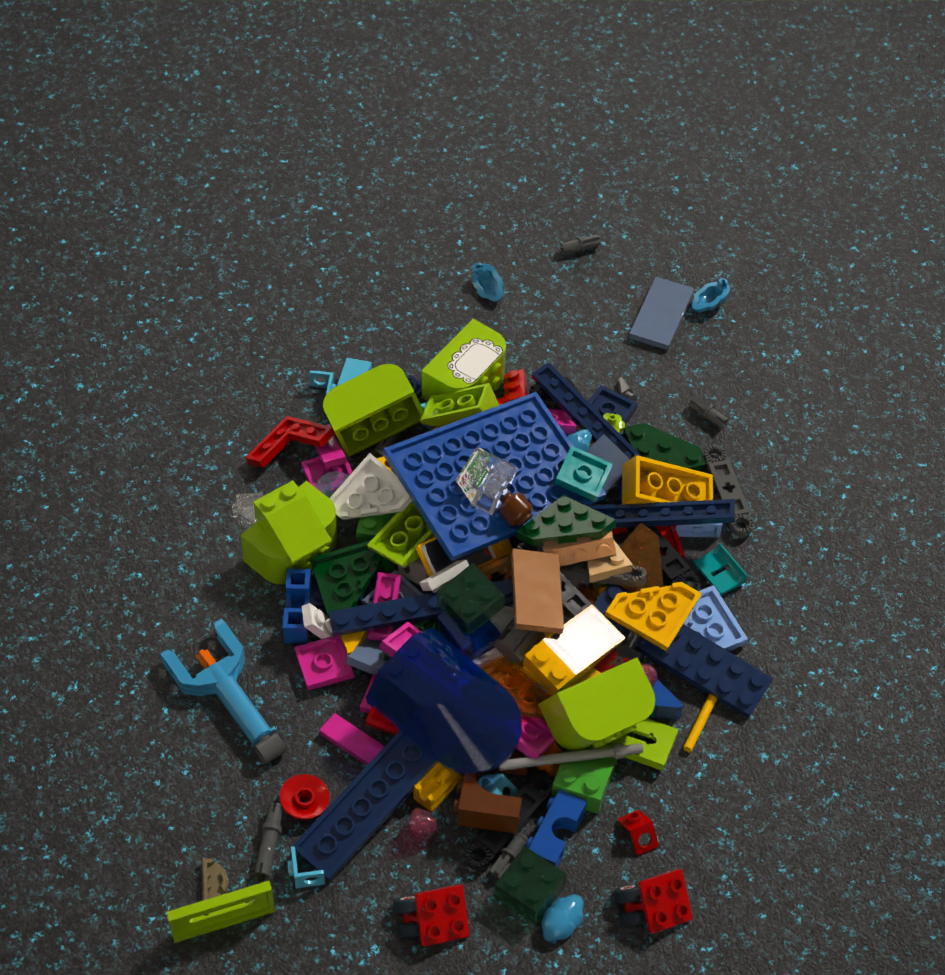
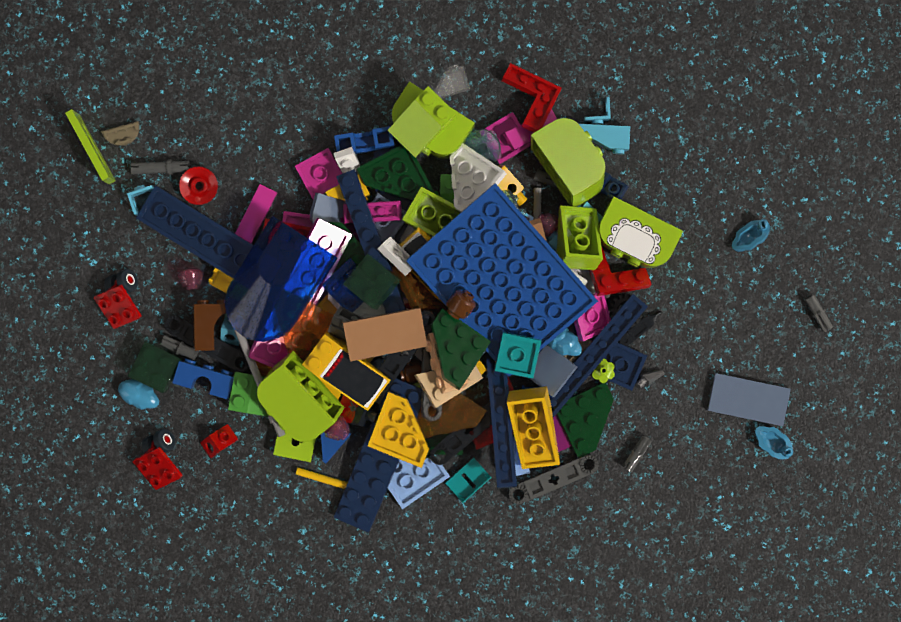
camera: 80 degrees right, 35 degrees up
(221, 679) = (287, 98): dark azure piece -> none
(485, 479) = (480, 275): clear slope -> none

